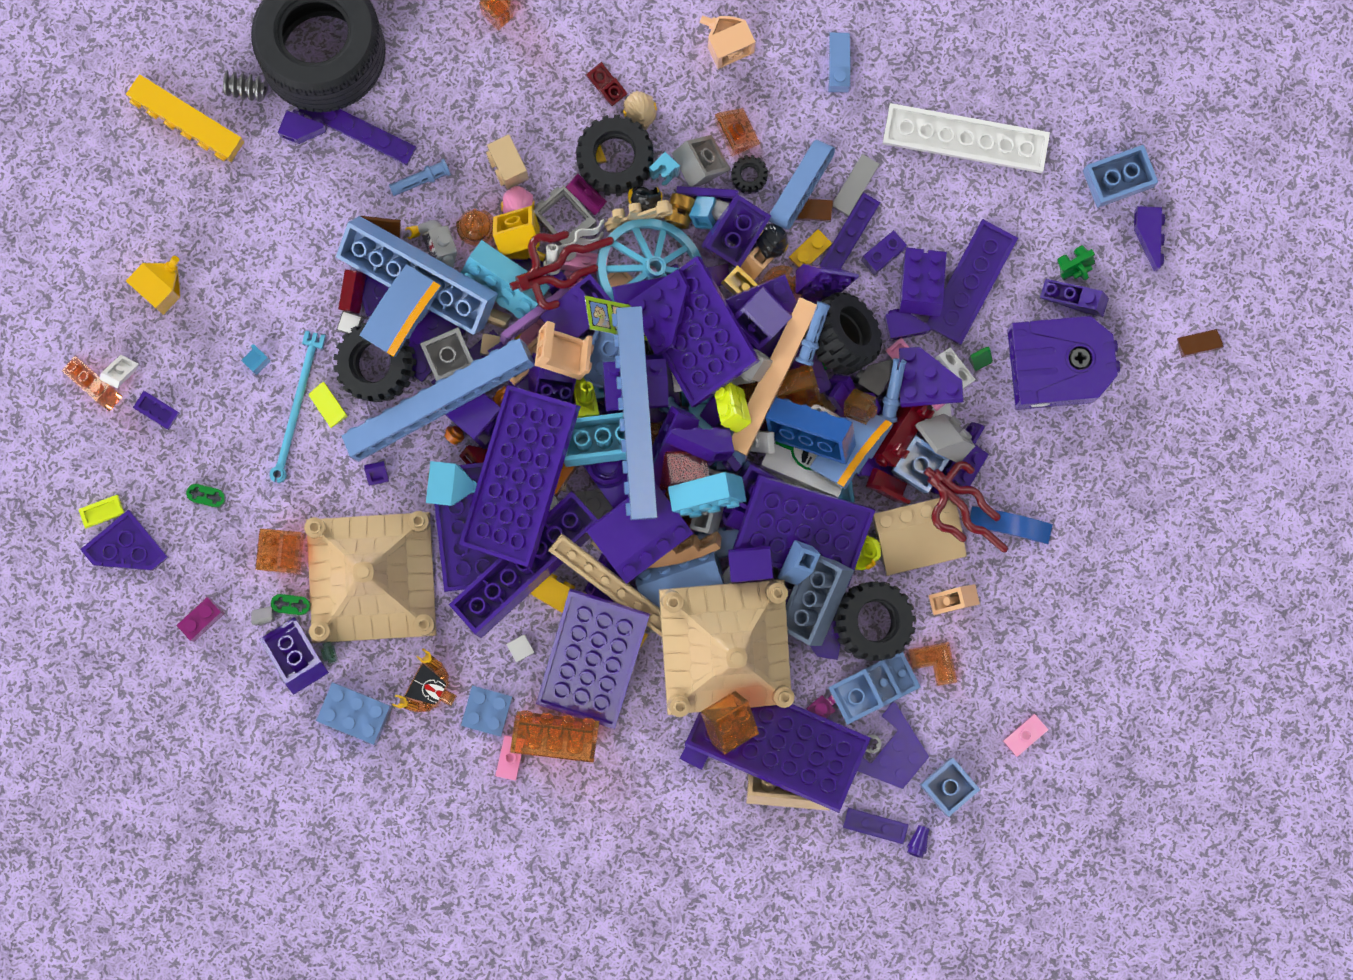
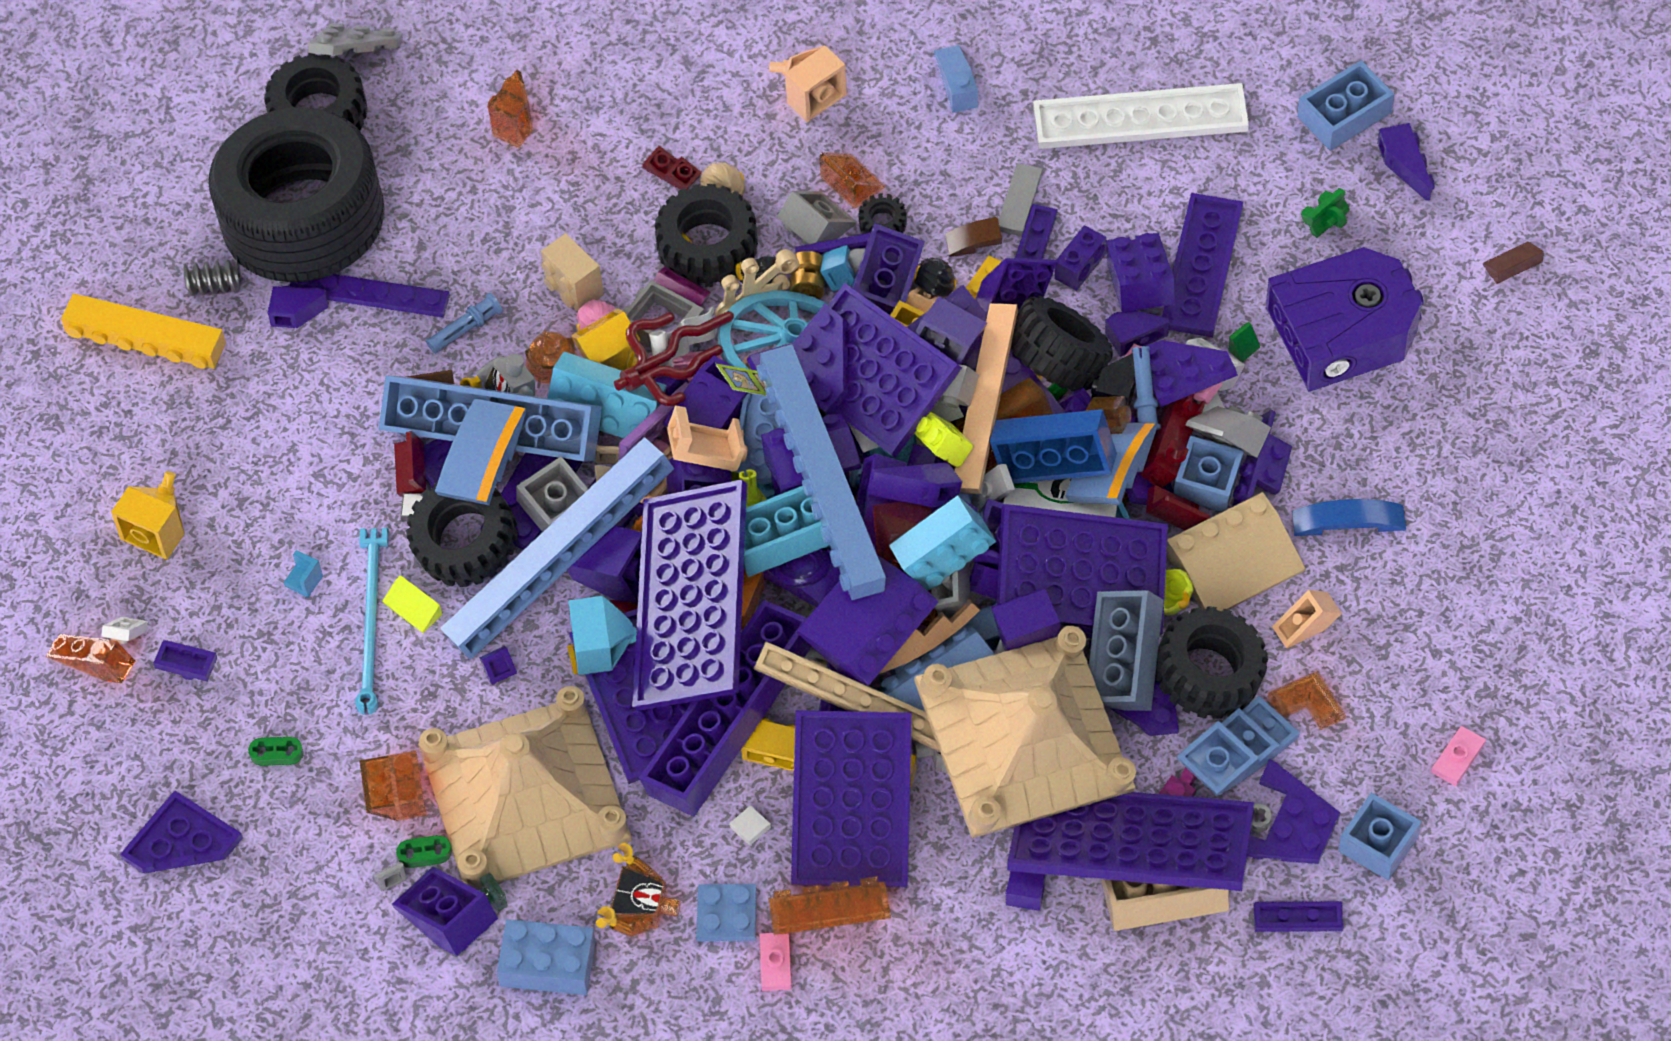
camera: 10 degrees left, 25 degrees down
(101, 511) = (137, 806): neon yellow tile -> none
(200, 619) = (305, 896): magenta brick -> none
(454, 434) = (587, 592): orange plate -> none
(666, 167) = (773, 230): medium azure hinge -> none
(730, 722) = (1059, 813): clear orange brick -> none
(799, 563) = (1089, 601): medium blue slope -> none
(802, 184) = (952, 209): medium blue beam -> none
(810, 343) = (1020, 347): medium blue pin -> none
(918, 843) = (1363, 920): dark purple cone -> none
(948, 490) = (1255, 484): dark red plant -> none
(1075, 297) = (1336, 242): dark purple slope -> none

